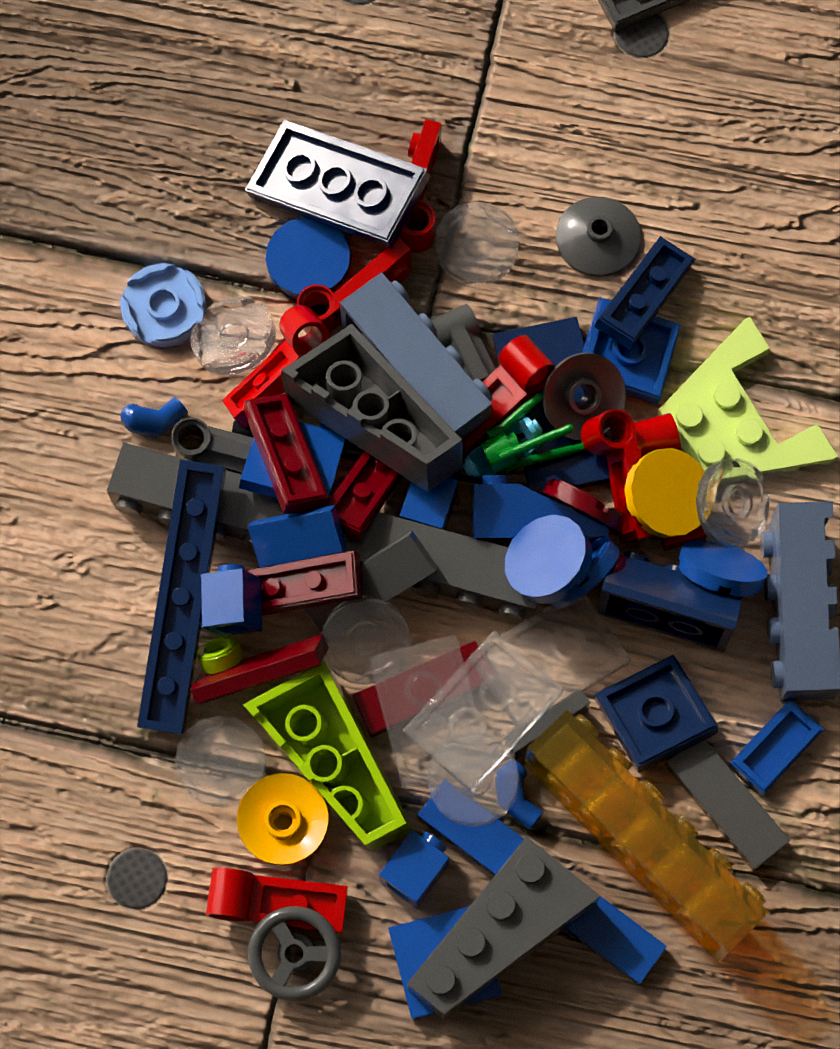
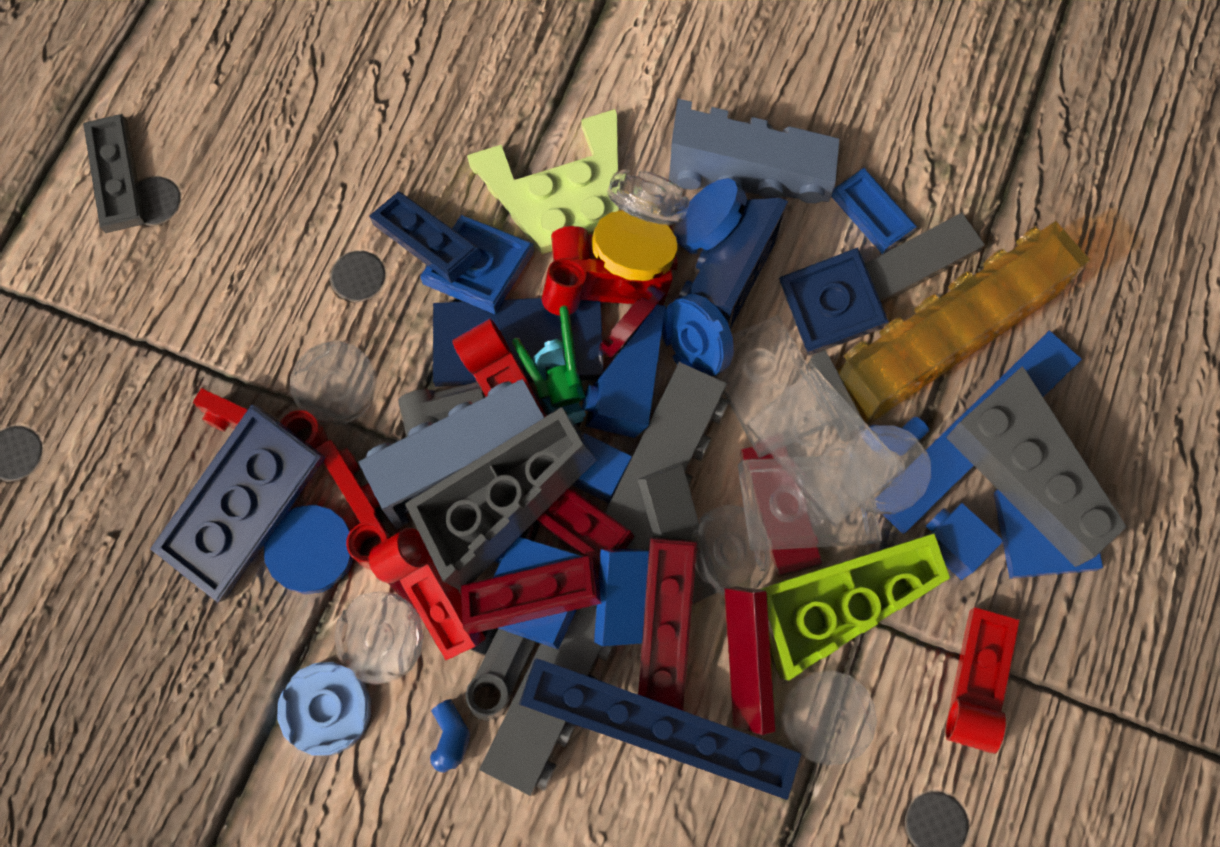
camera: 80 degrees left, 0 degrees up
(220, 654) = (722, 700): lime tile -> none
(231, 601) = (678, 675): brick -> none
(278, 796) = (922, 657): yellow dish -> none
(330, 953) = (1021, 670): dark grey piece -> none
(548, 558) = (688, 355): tile -> none
(596, 253) = (356, 289): dark grey dish -> none
(601, 387) = (516, 303): dark grey dish -> none

